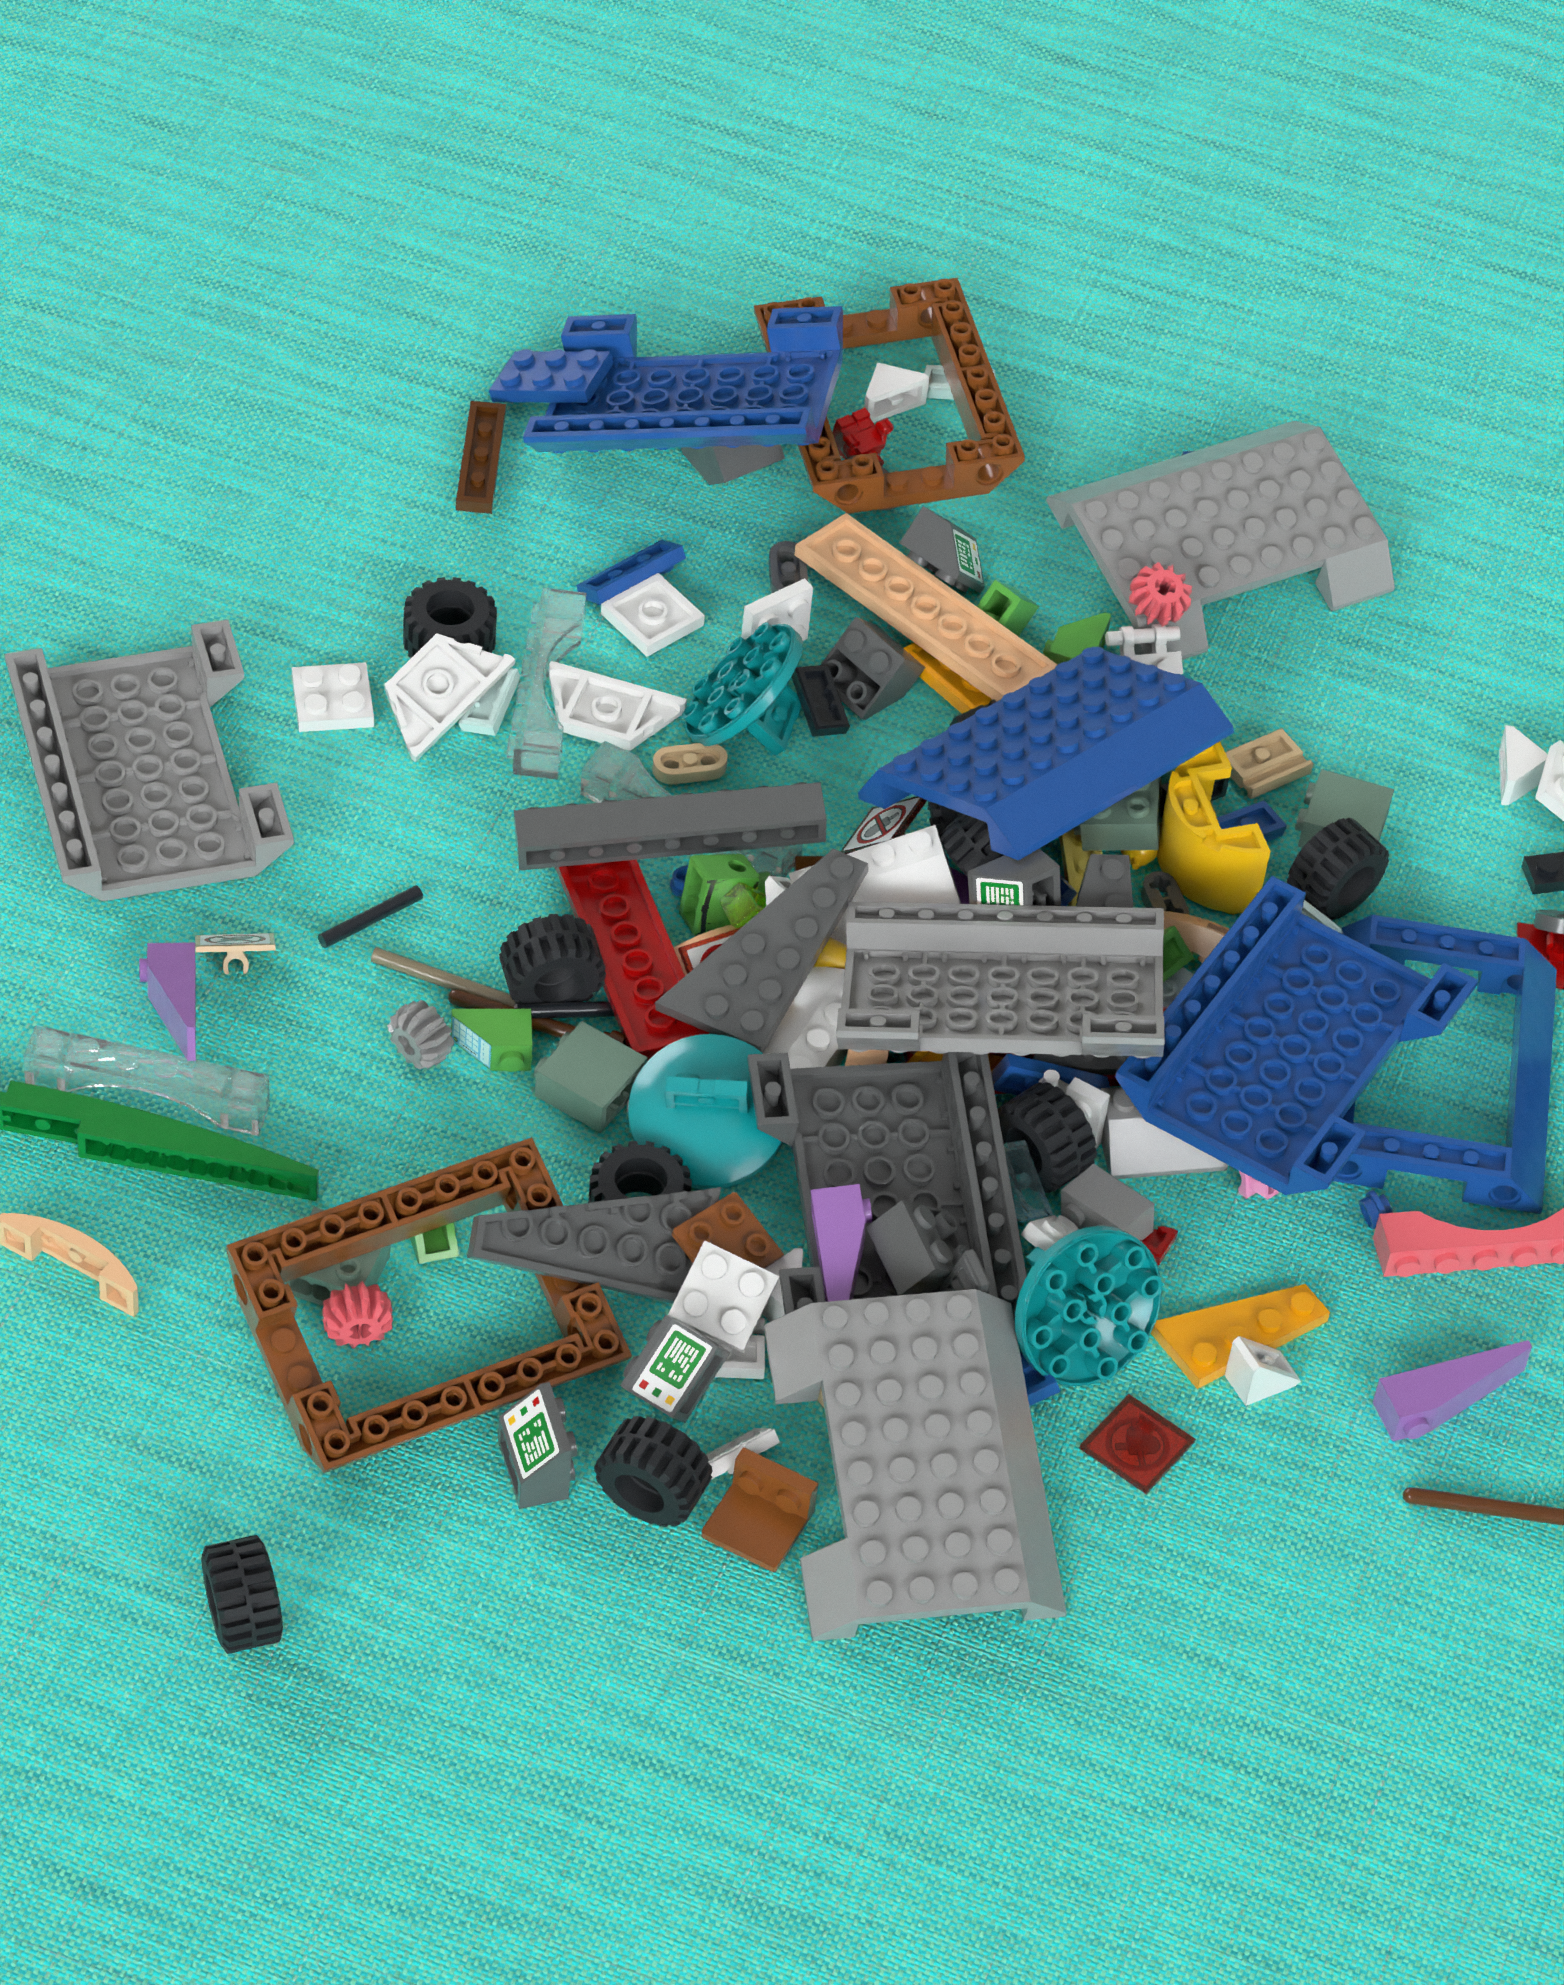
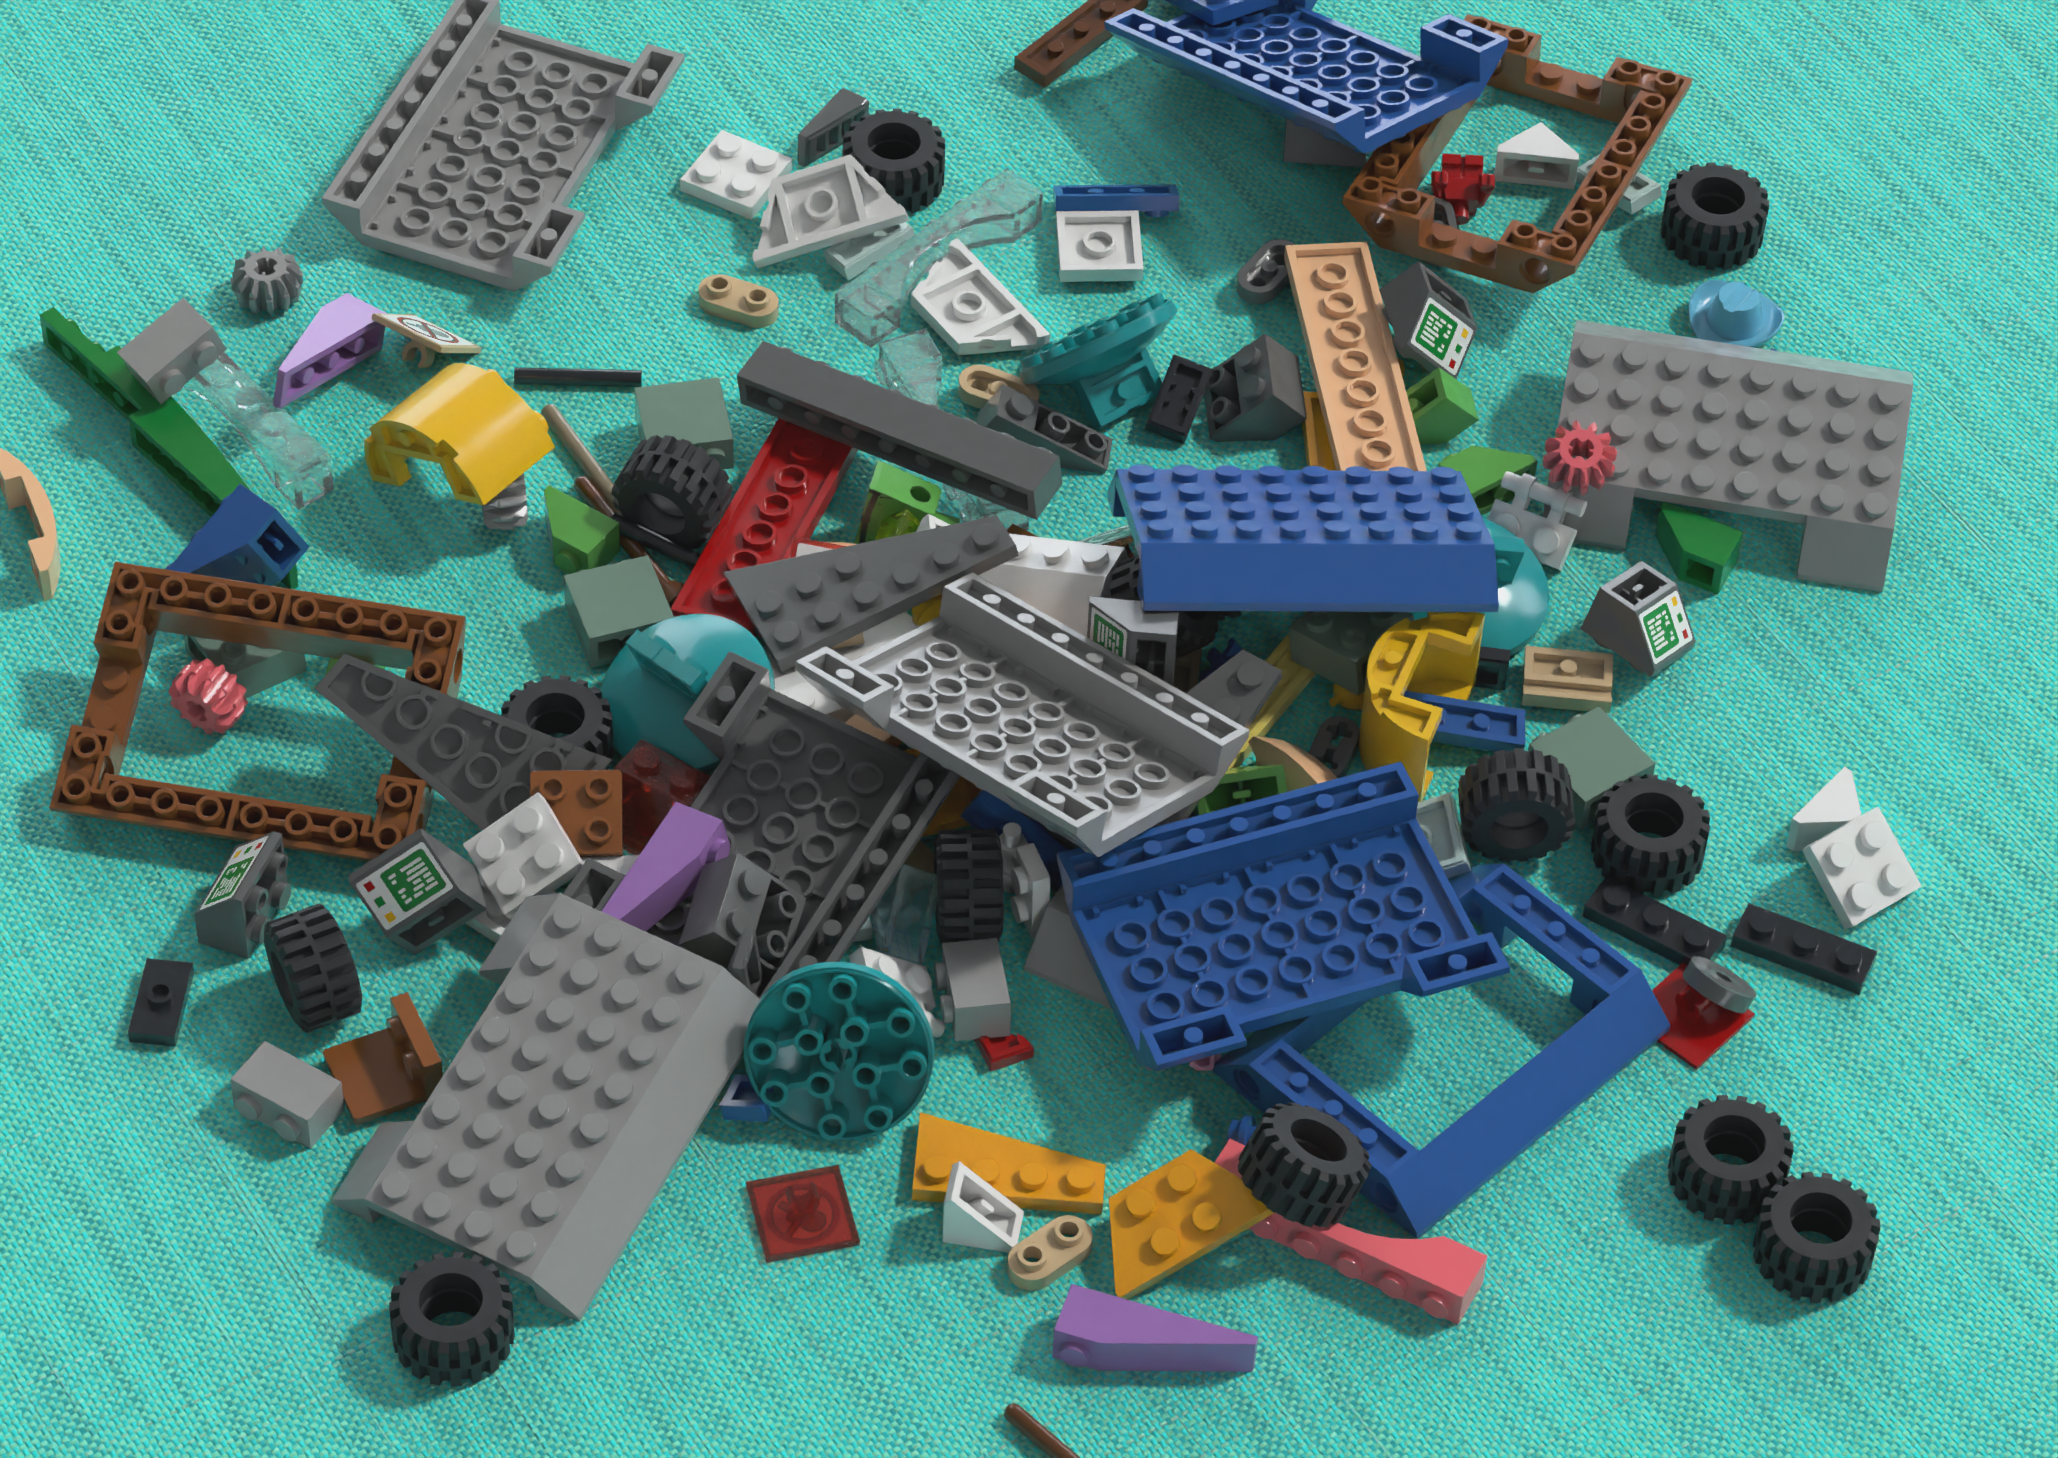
camera: 40 degrees right, 0 degrees up
(64, 968) = (267, 281): none -> light grey gear
(79, 1059) = (172, 351): none -> light grey brick
(292, 1178) = (243, 542): none -> blue slope
(358, 993) = (466, 424): none -> yellow cylinder
(374, 619) = (828, 127): none -> dark grey slope
(430, 794) = (738, 301): none -> tan plate
(494, 906) = (687, 412): none -> sand green brick
(543, 1569) = (161, 1002): none -> black plate
(711, 1579) = (287, 1095): none -> light grey brick
(749, 771) = (1043, 427): none -> dark grey slope
(756, 1440) = (423, 1001): white plate -> none
(769, 1193) = (650, 788): none -> clear red slope
(784, 606) = (1203, 302): white plate -> none
(1002, 1639) = (446, 1287): none -> black tyre
(1050, 374) = (1714, 216): none -> black tyre
(1125, 442) = (1733, 314): none -> medium azure hat
(1259, 622) = (1697, 547): none -> green slope
(1280, 693) = (1641, 619): none -> dark grey slope
(1325, 1365) = (1053, 1250): none -> tan plate
(1397, 1290) = (1176, 1219): none -> light orange wing
(1428, 843) = (1653, 808): none -> black tyre
(1460, 1200) = (1304, 1164): none -> black tyre
(1478, 906) = (1652, 923): none -> black plate

